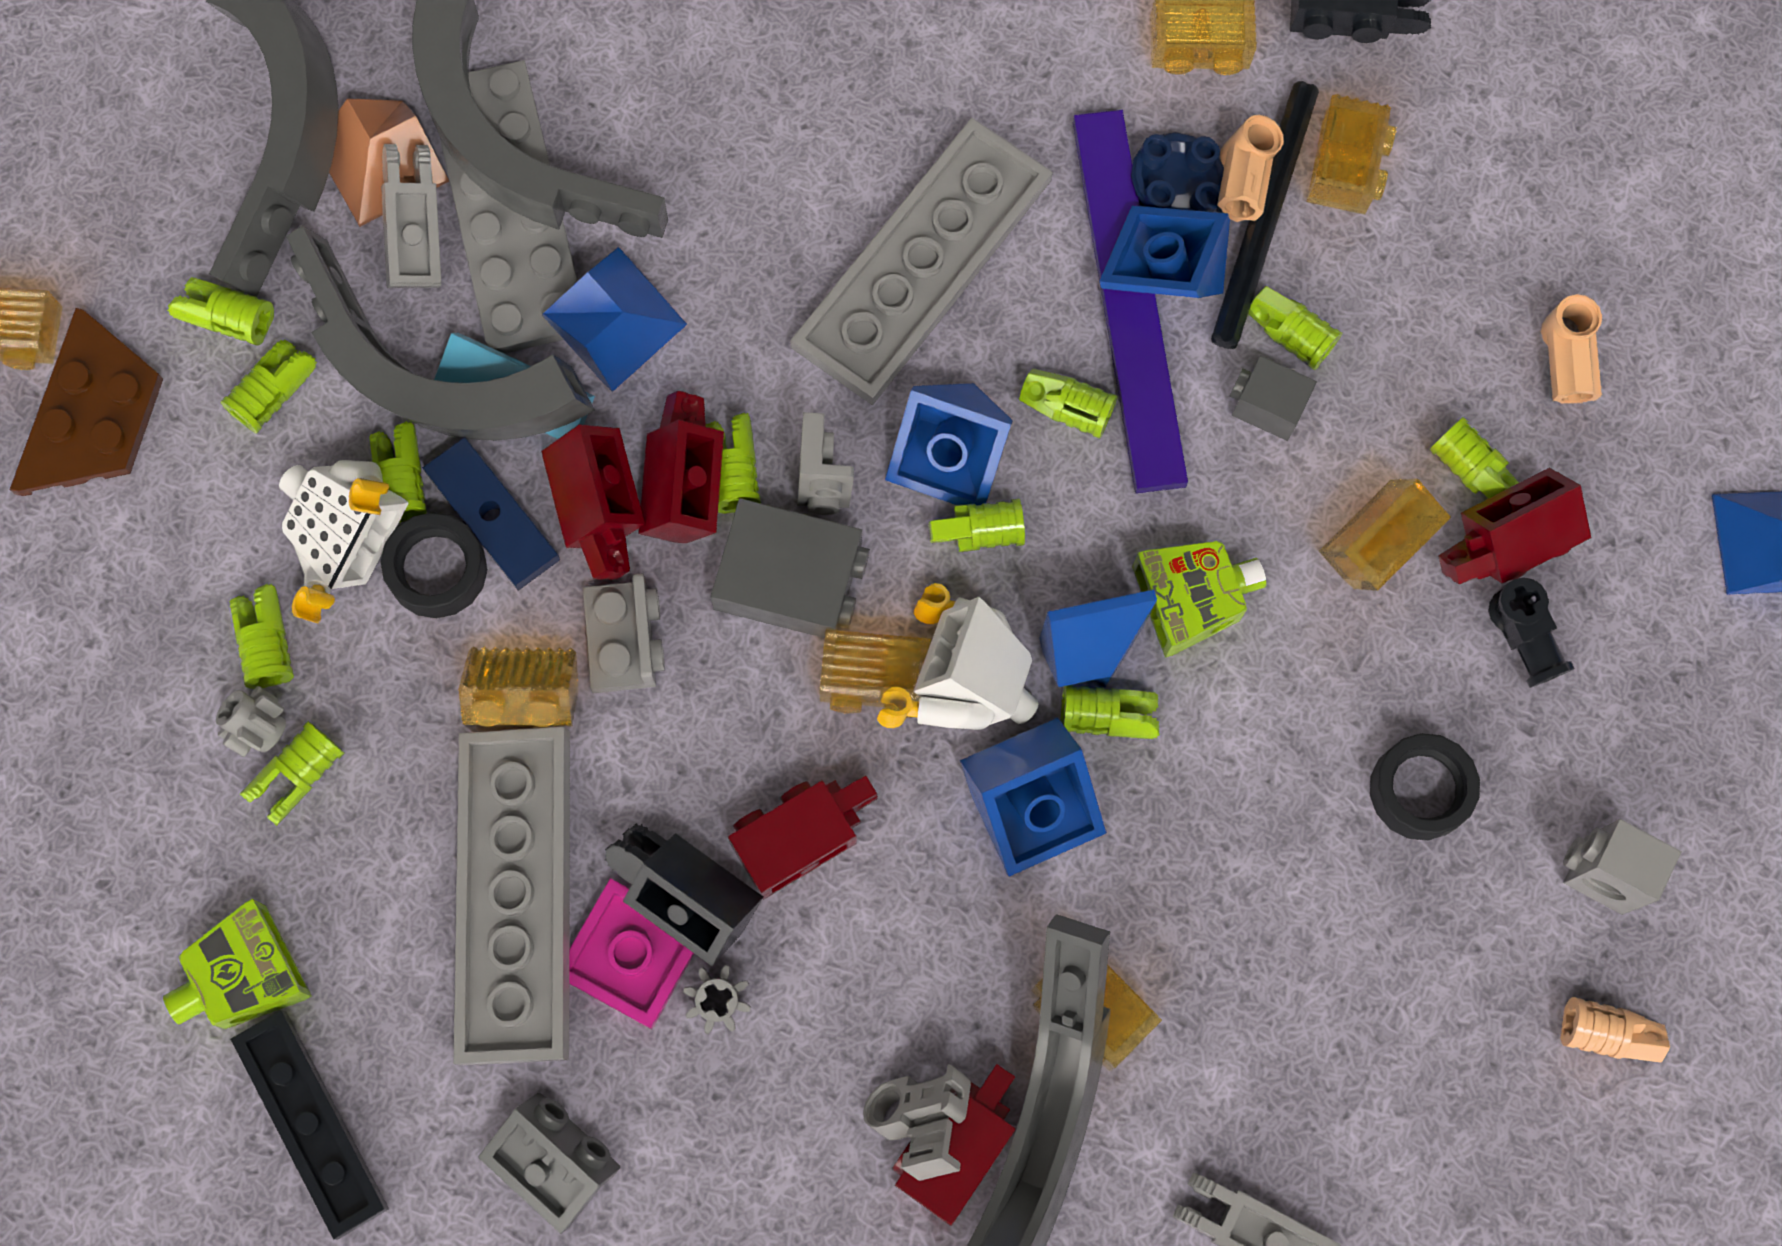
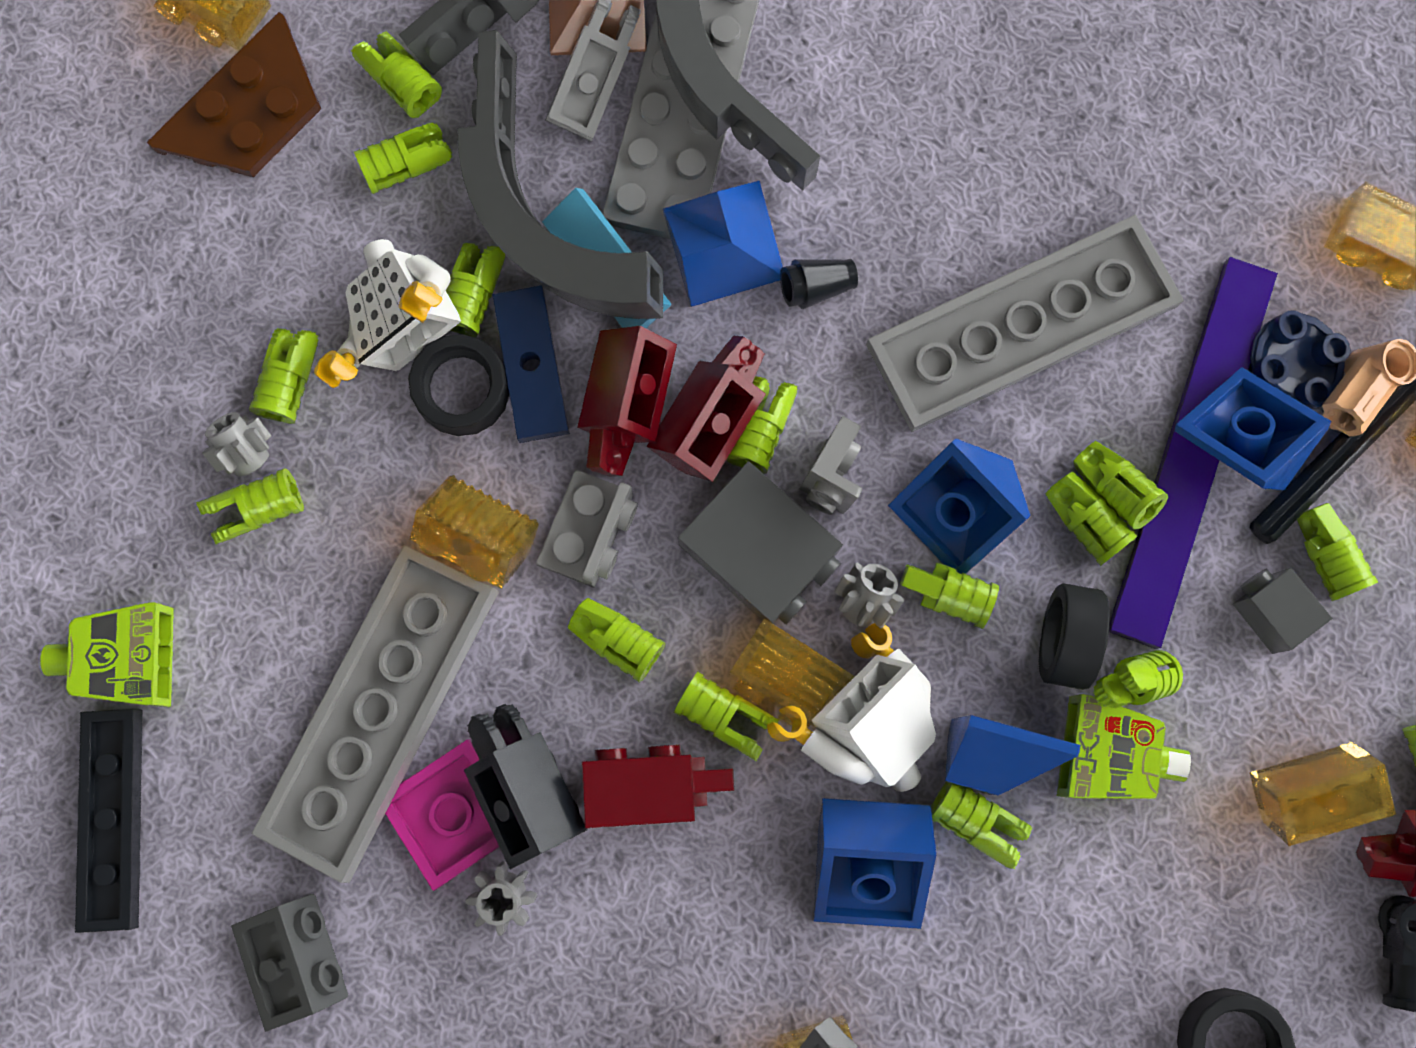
camera: 30 degrees right, 5 degrees up
(700, 718) = (616, 638): none -> lime hinge
(716, 312) = (816, 280): none -> black cone
(822, 735) = (713, 710): none -> lime hinge
(908, 564) = (869, 595): none -> light grey gear
(1080, 358) = (1120, 484): none -> lime hinge
(1105, 507) = (1074, 636): none -> black tyre
(1181, 509) = (1139, 681): none -> lime hinge

